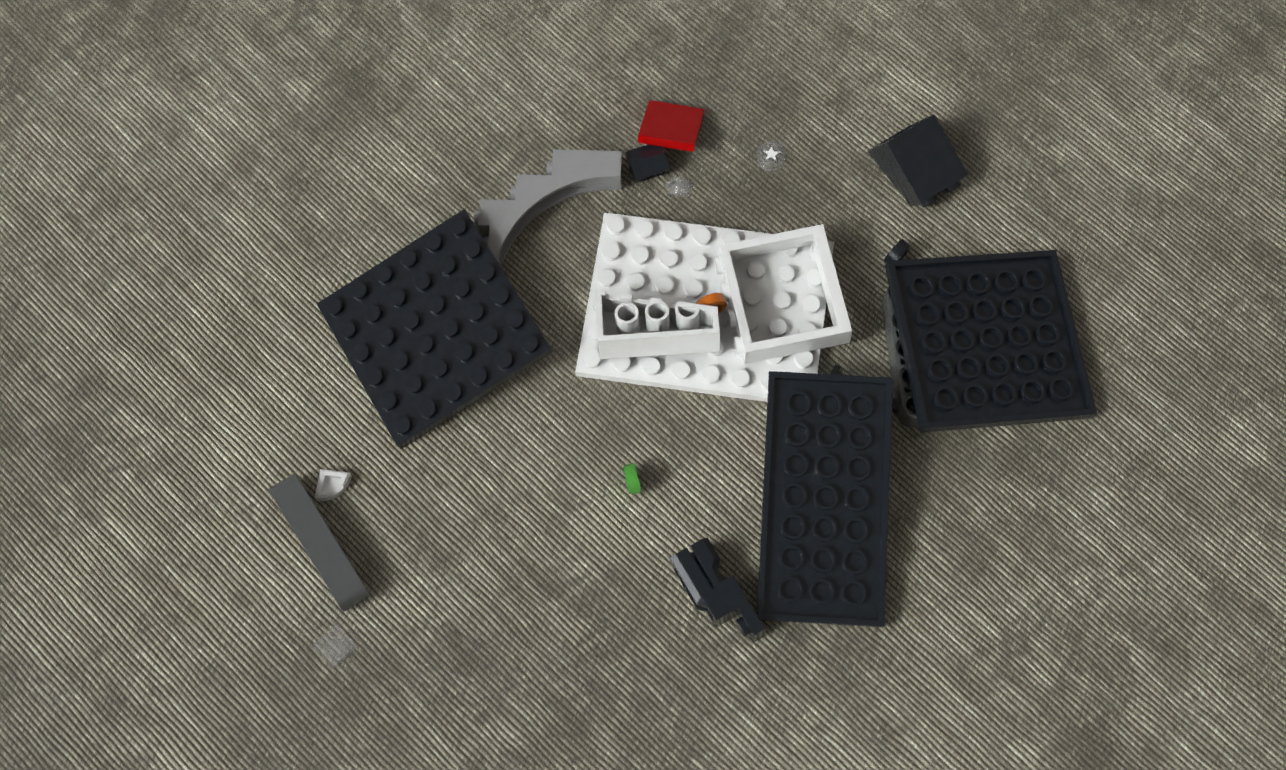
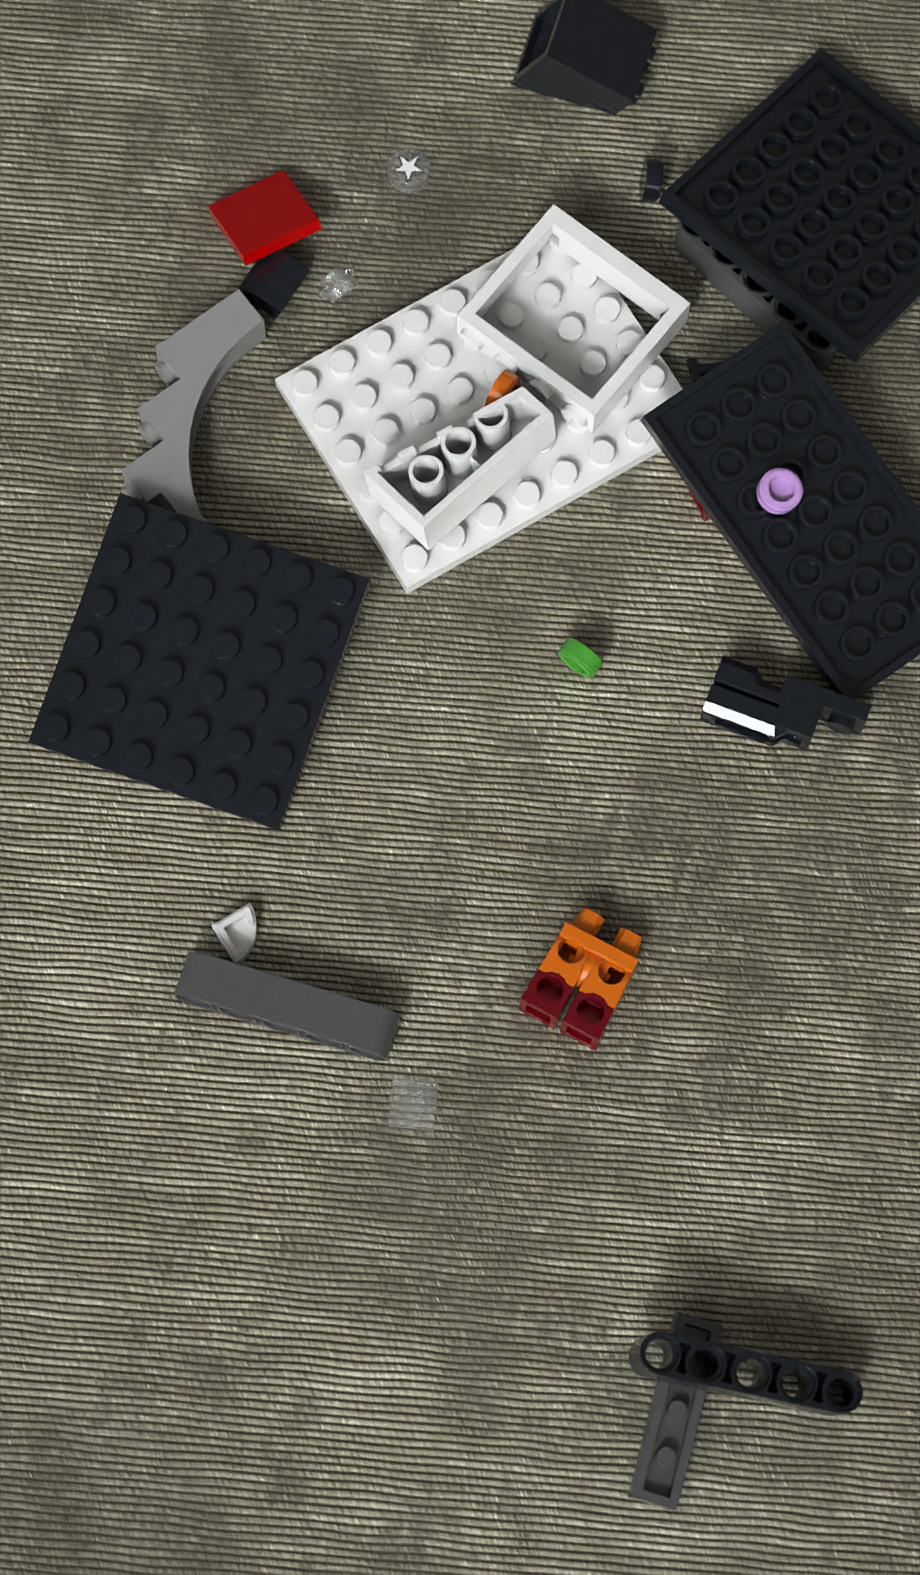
camera: 45 degrees left, 5 degrees up
(479, 652) = (587, 963): none -> hips
(812, 469) = (779, 491): none -> lavender tile

